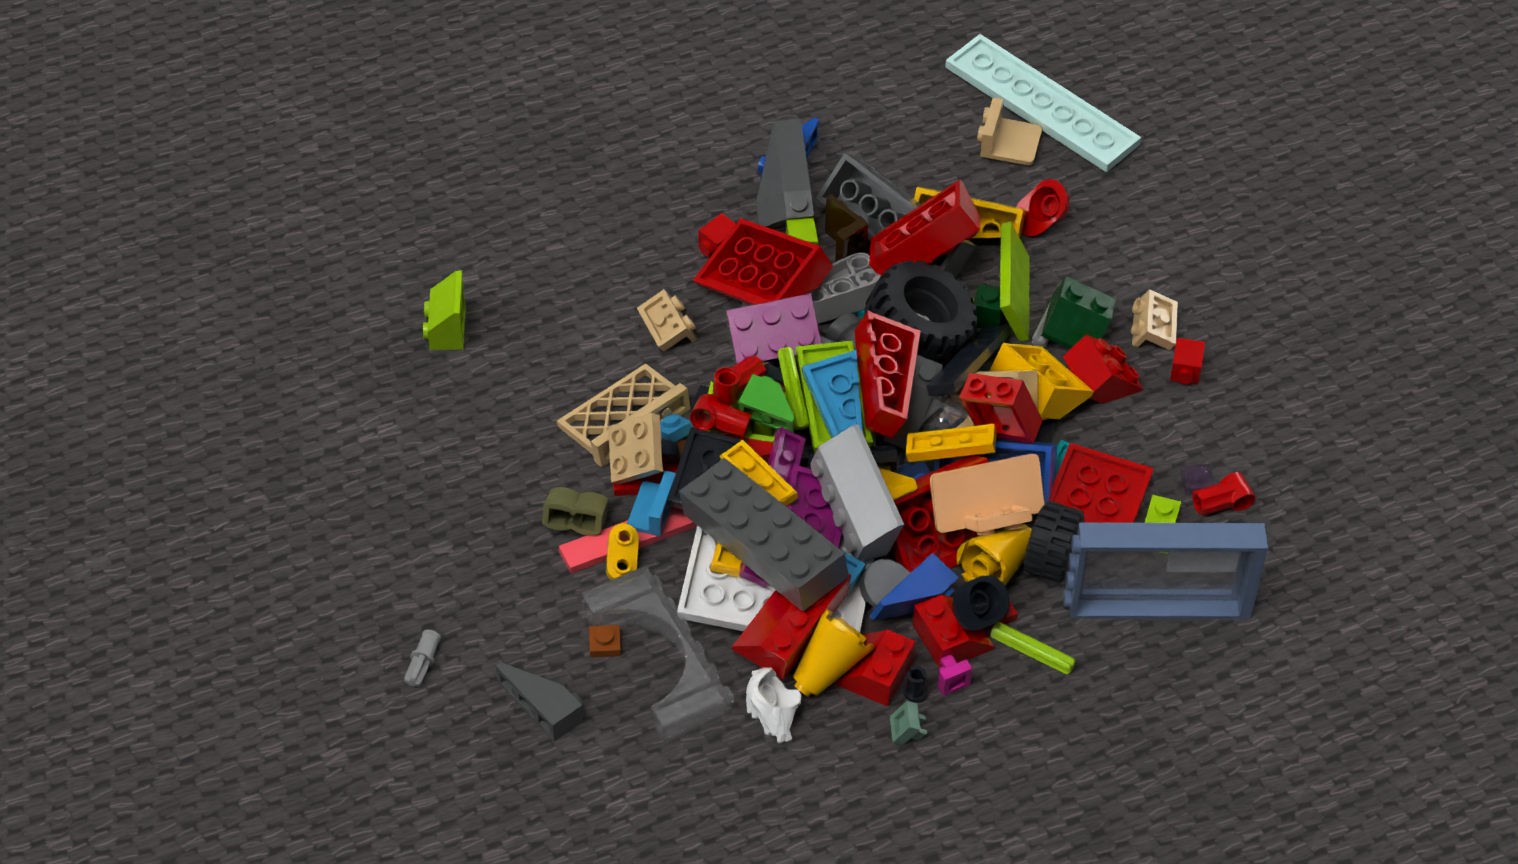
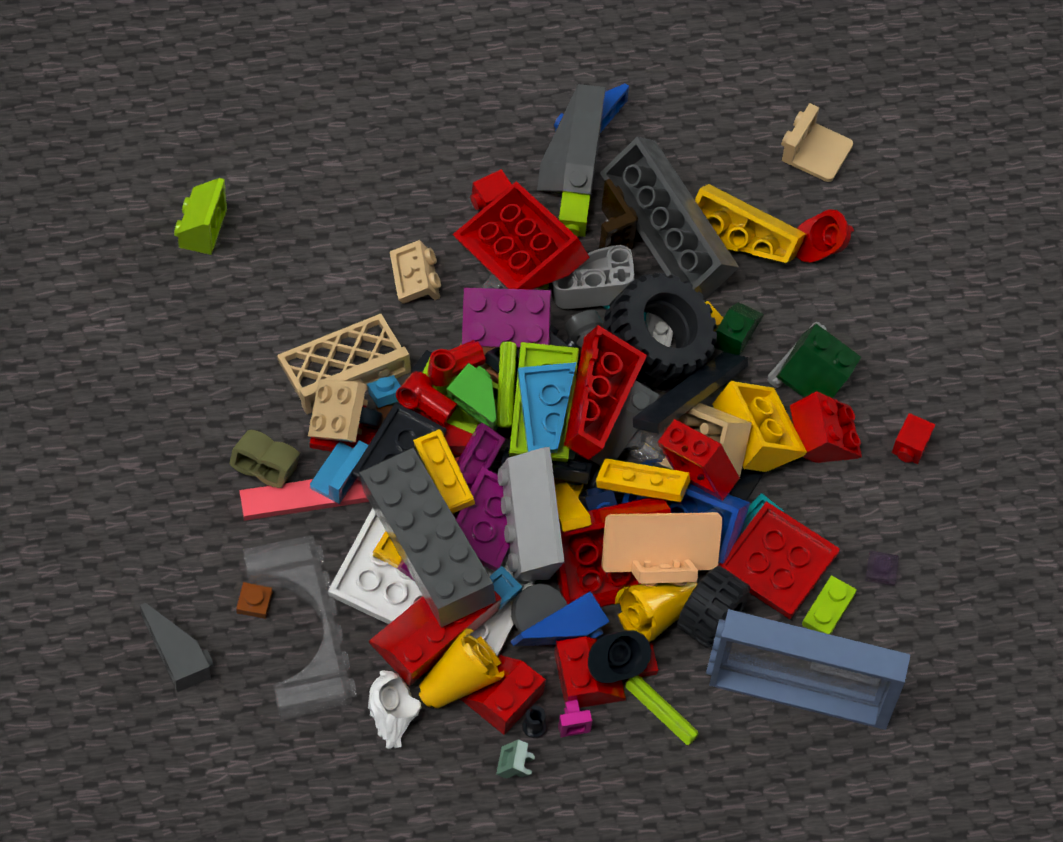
camera: 10 degrees right, 10 degrees up
(422, 658) = (76, 577): light grey axle -> none
(621, 551) = (296, 512): yellow plate -> none
(927, 230) = (689, 244): red slope -> none
(1014, 281) = (767, 312): lime tile -> none
(1043, 102) = (863, 115): light aqua plate -> none
(1154, 320) = (896, 385): tan bracket -> none
(1230, 493) = (908, 592): red piece -> none

